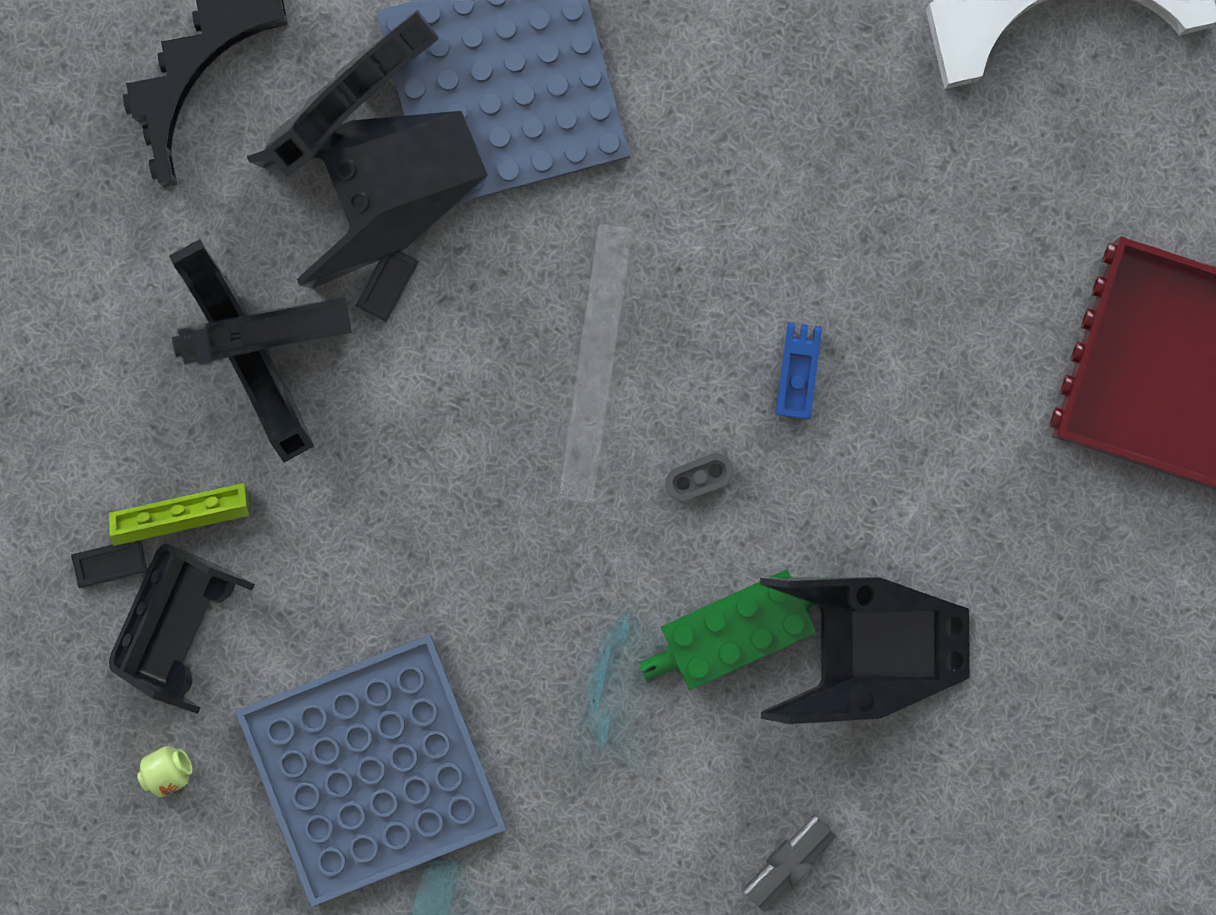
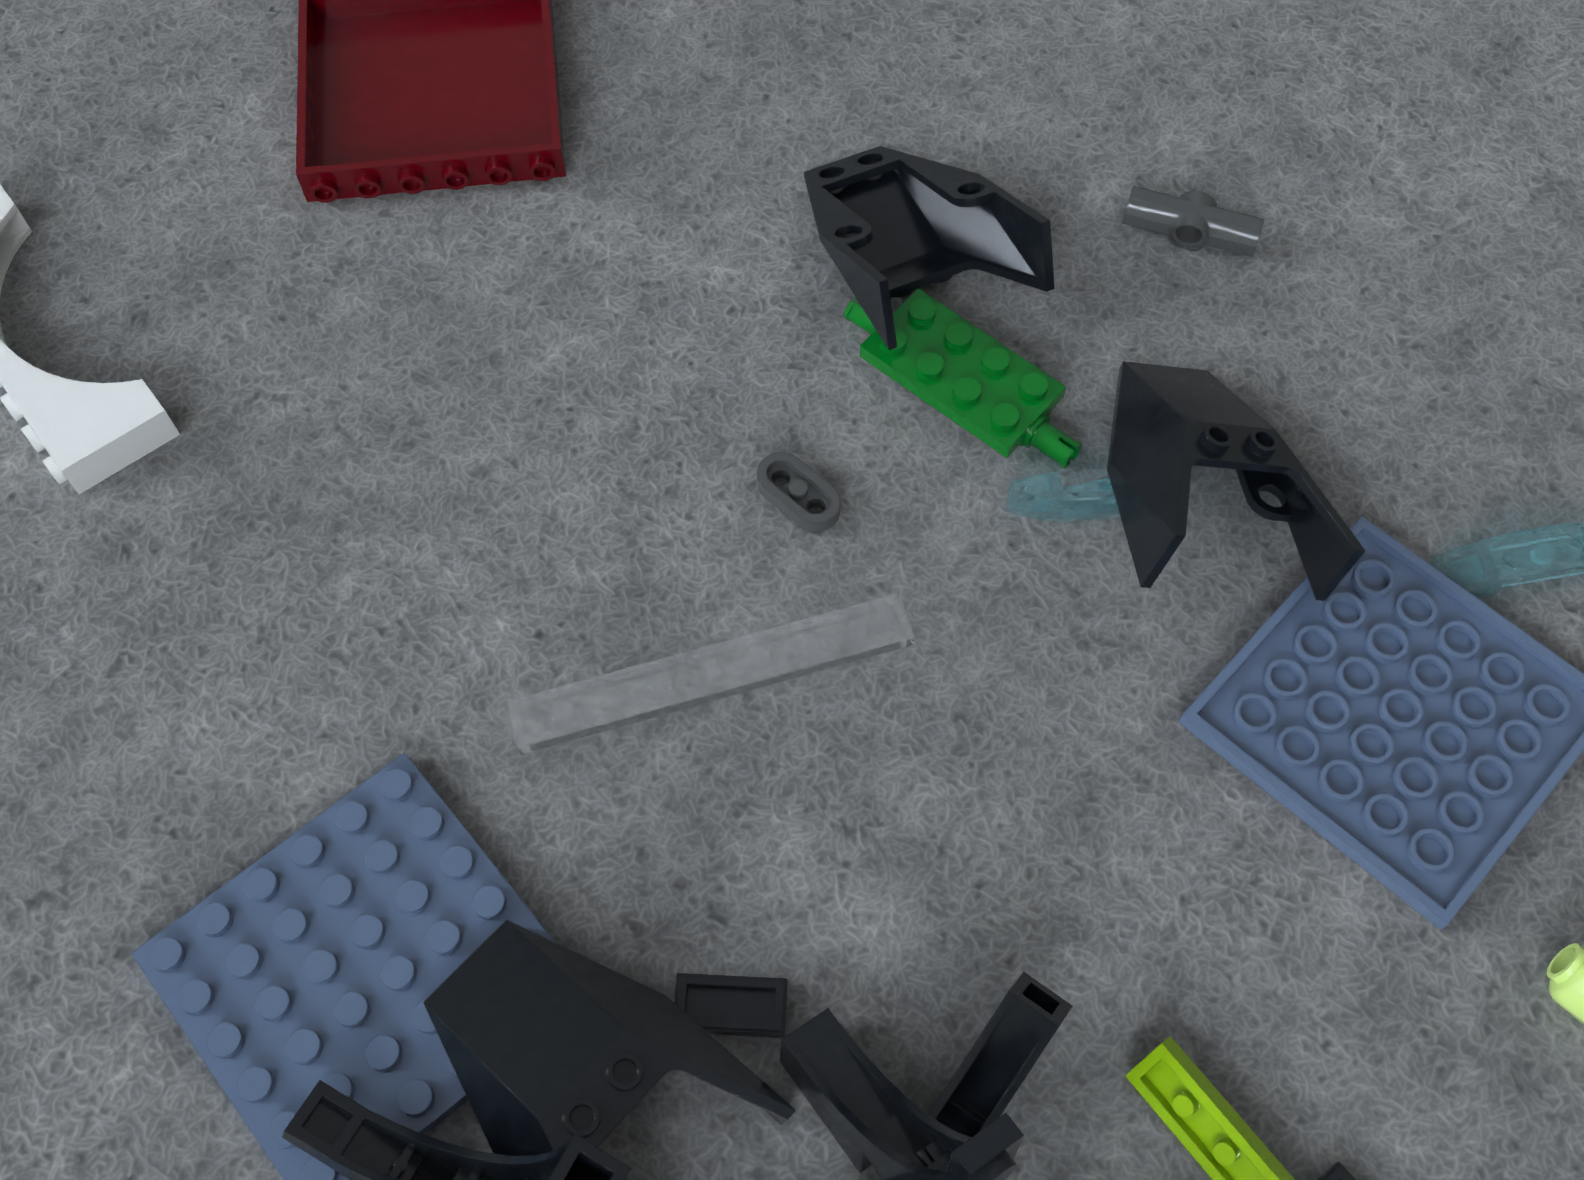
camera: 115 degrees left, 25 degrees down
(165, 622) = (1400, 1099): black windscreen -> none
(604, 746) = (1187, 419): none -> black windscreen
(798, 372) = (609, 439): blue hinge -> none

